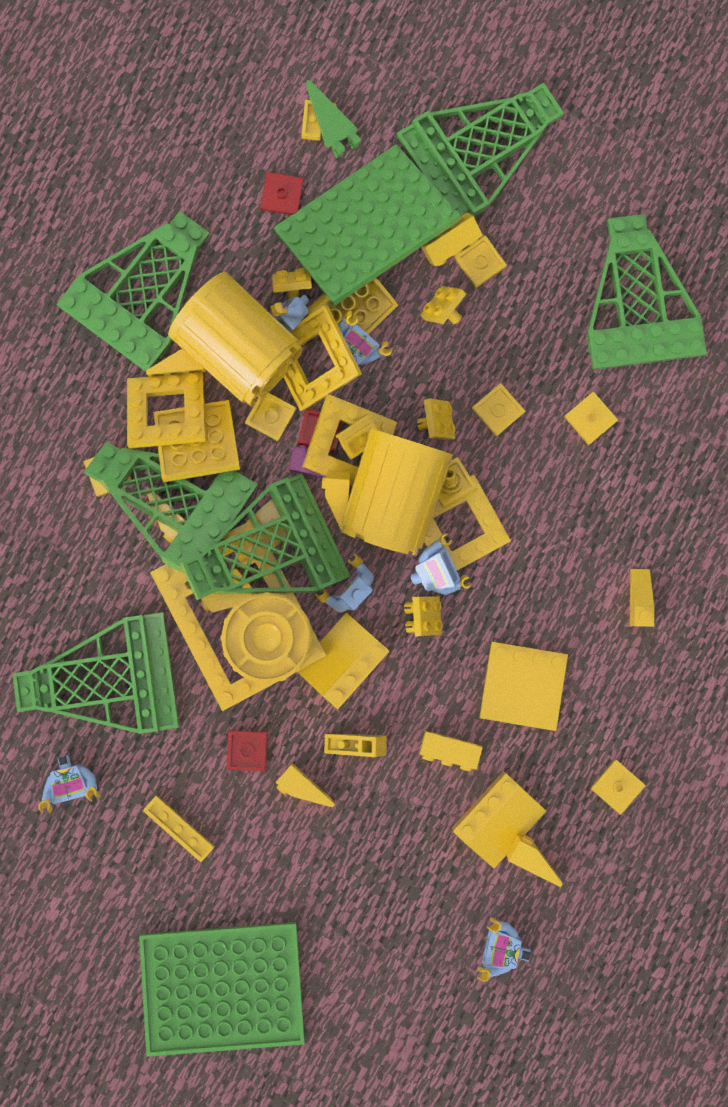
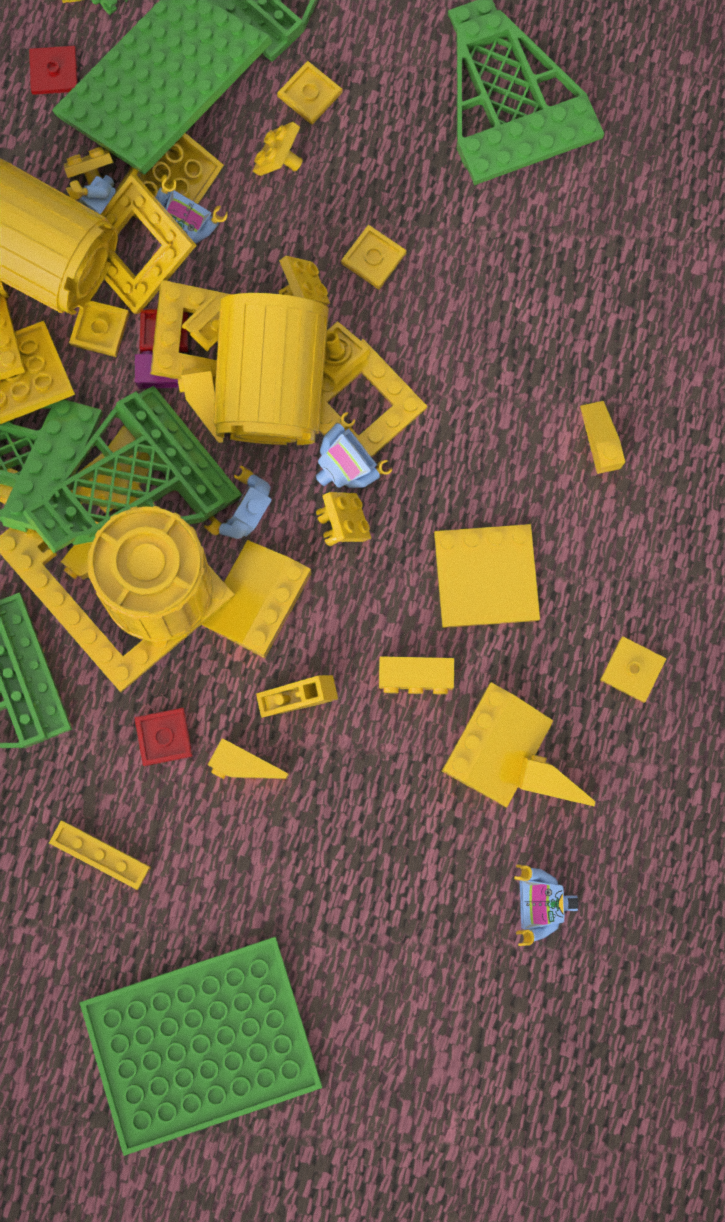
camera: 15 degrees left, 5 degrees down
(452, 240) = (268, 74): yellow brick -> none
(590, 418) = (487, 241): yellow plate -> none

